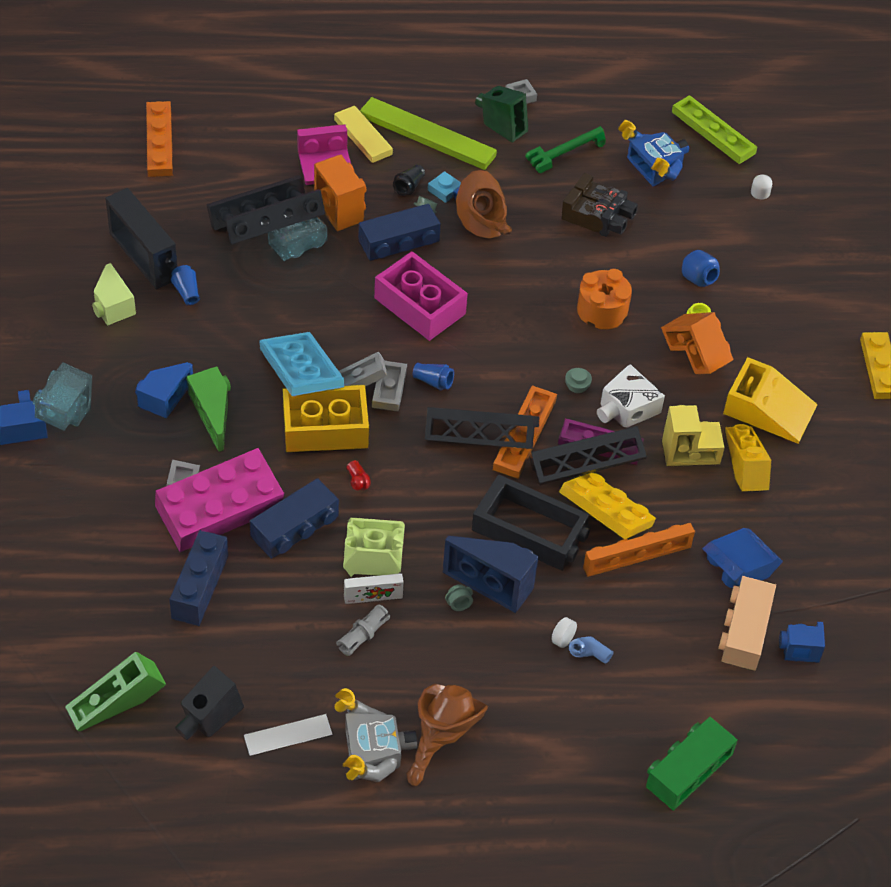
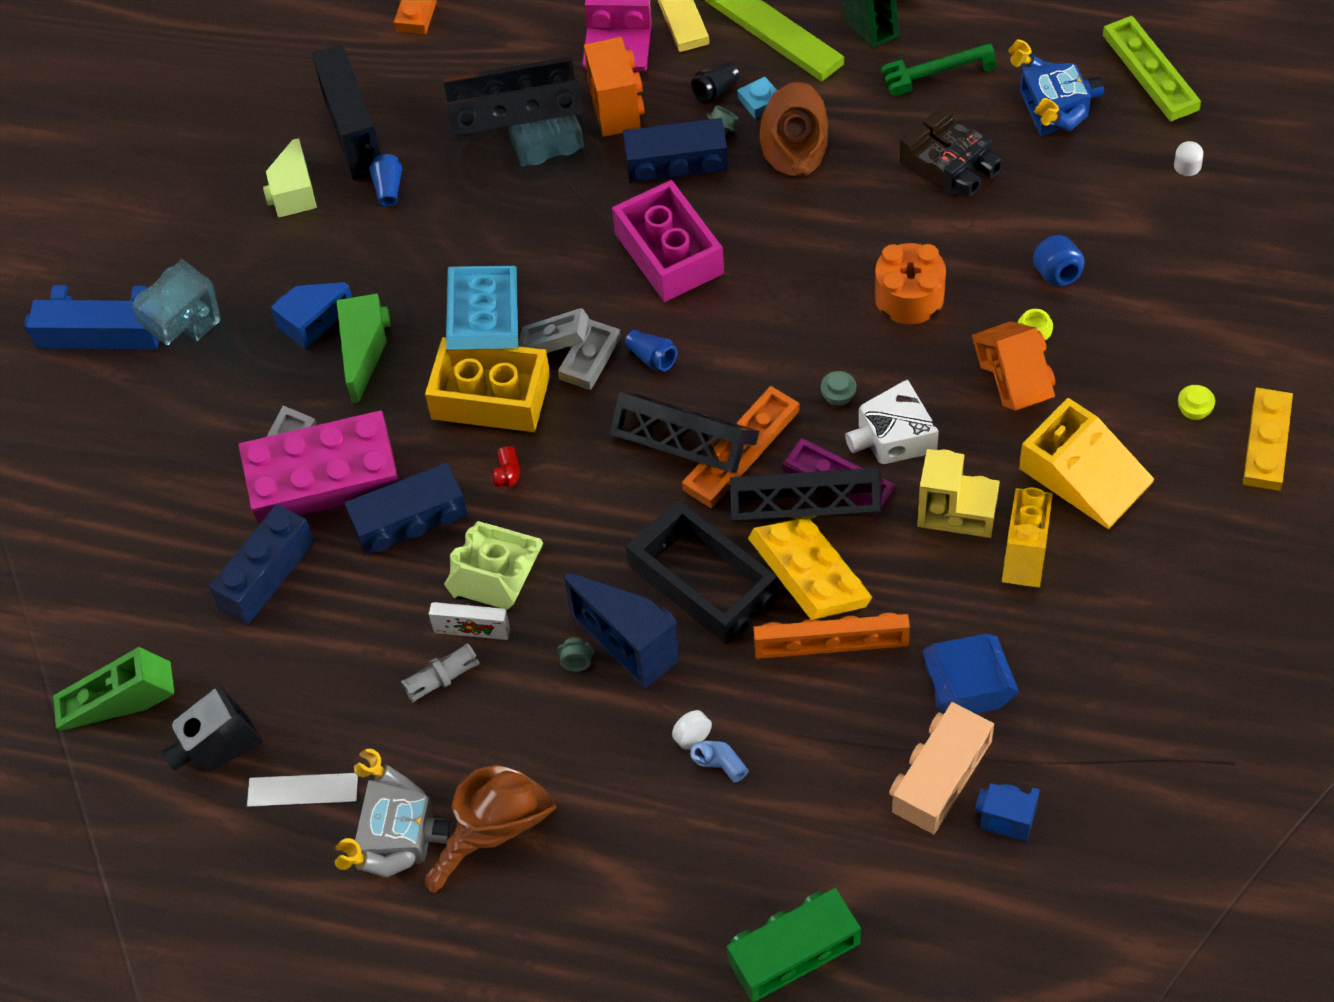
camera: 25 degrees right, 5 degrees up
(825, 349) = (1196, 402): none -> neon yellow plate

